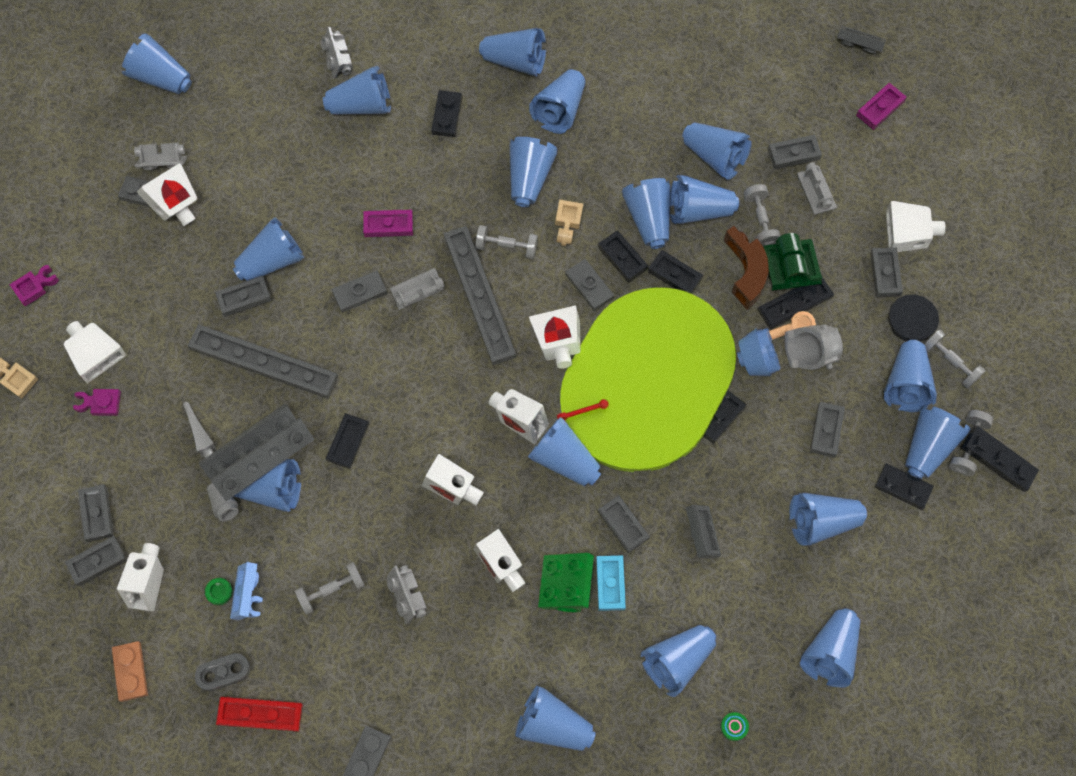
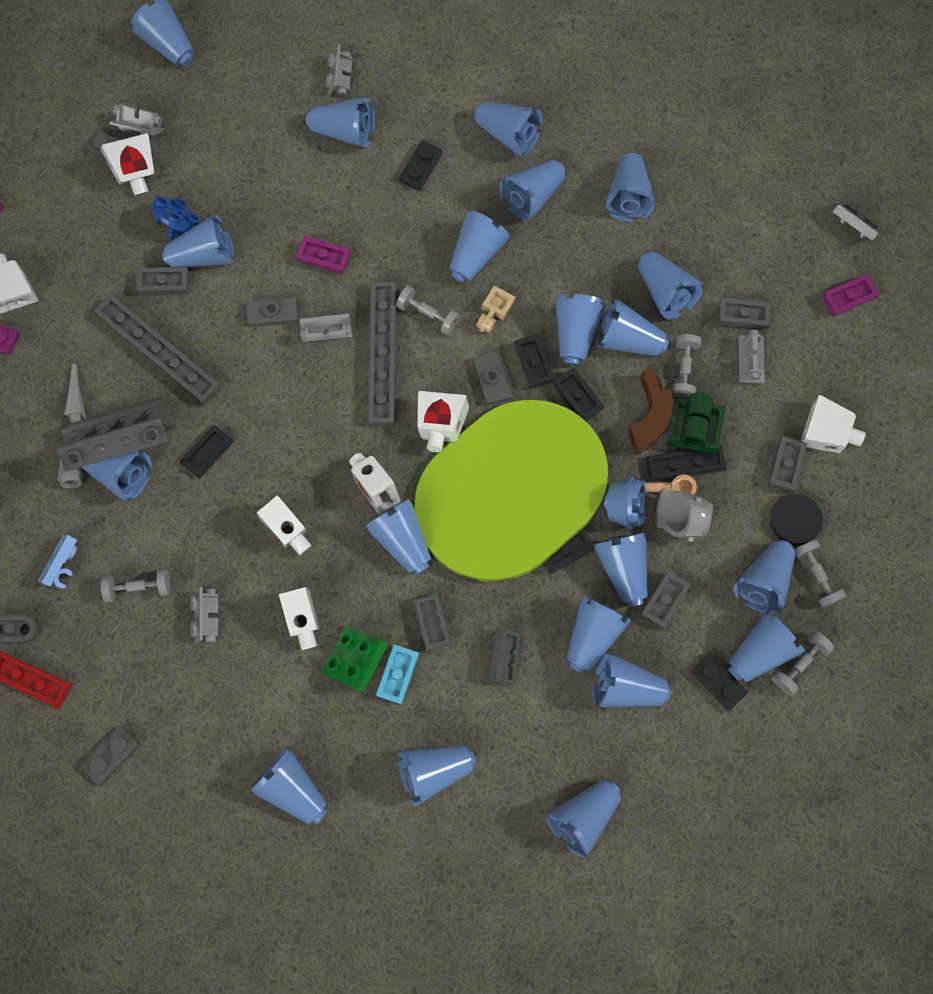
camera: 20 degrees right, 5 degrees up
(218, 591) = (36, 552): green tile -> none
(232, 230) = (174, 214): none -> blue plate
(603, 404) = (457, 500): red hinge -> none
(650, 75) = (630, 190): none -> medium blue cone
(734, 726) = (461, 854): green tile -> none
(776, 481) = (593, 634): none -> medium blue cone
(781, 411) = (626, 566): none -> medium blue cone
(1000, 458) = (825, 689): black plate -> none

